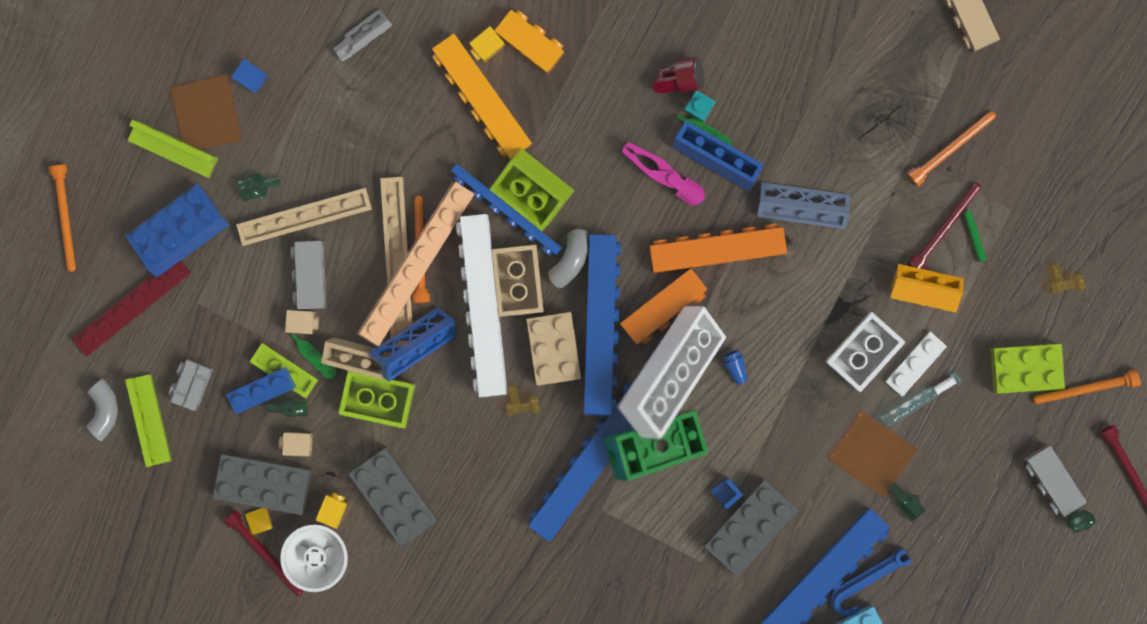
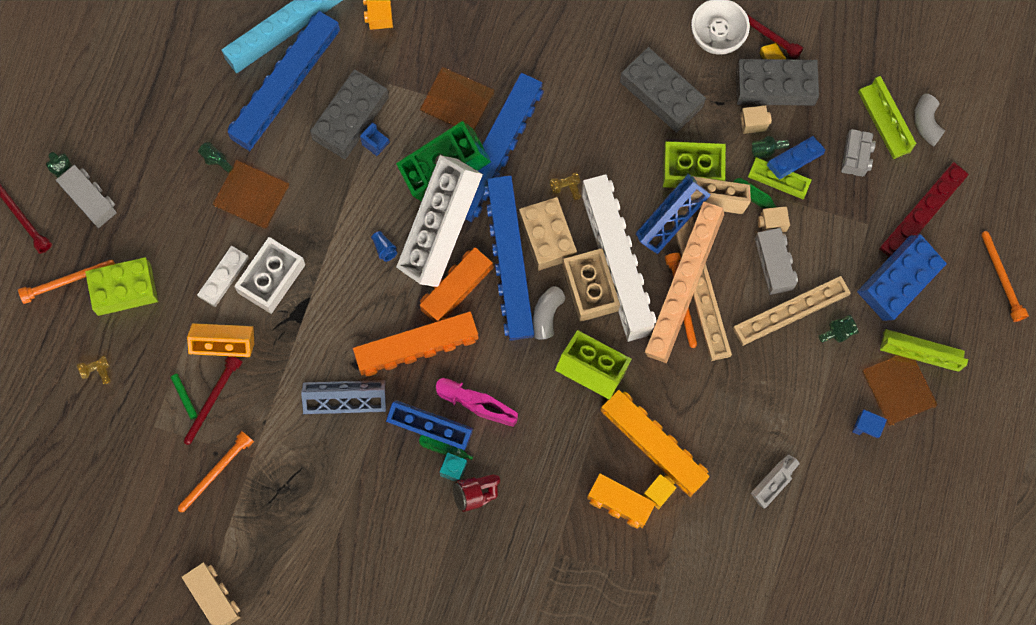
camera: 165 degrees right, 15 degrees down
(332, 510) = (712, 71): yellow brick -> none
(498, 205) = (639, 359): blue plate -> none
(626, 527) = (456, 99): none -> clear orange piece
(865, 579) = (216, 110): blue piece -> none
(918, 401) = (225, 237): clear light blue piece -> none

